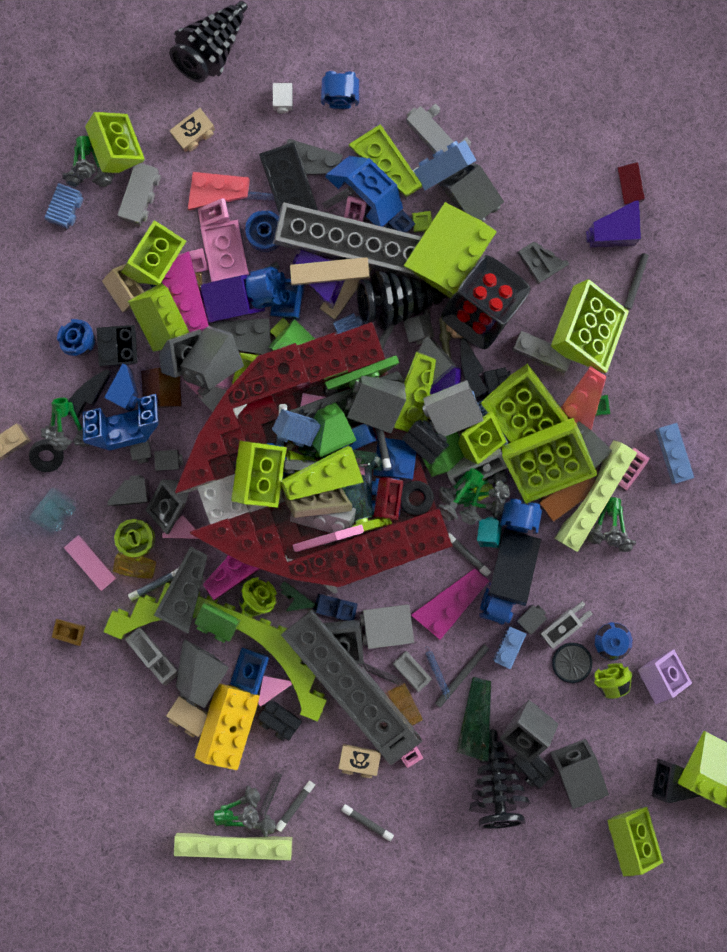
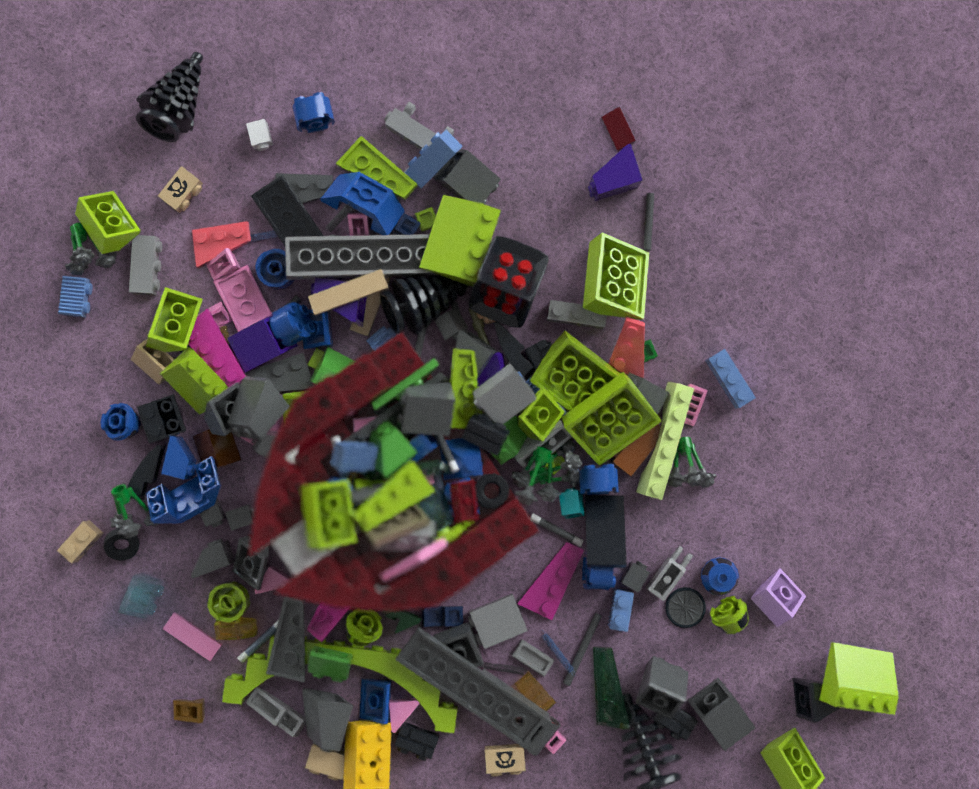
camera: 15 degrees left, 0 degrees up
(540, 262) = (551, 228): dark grey wing -> none

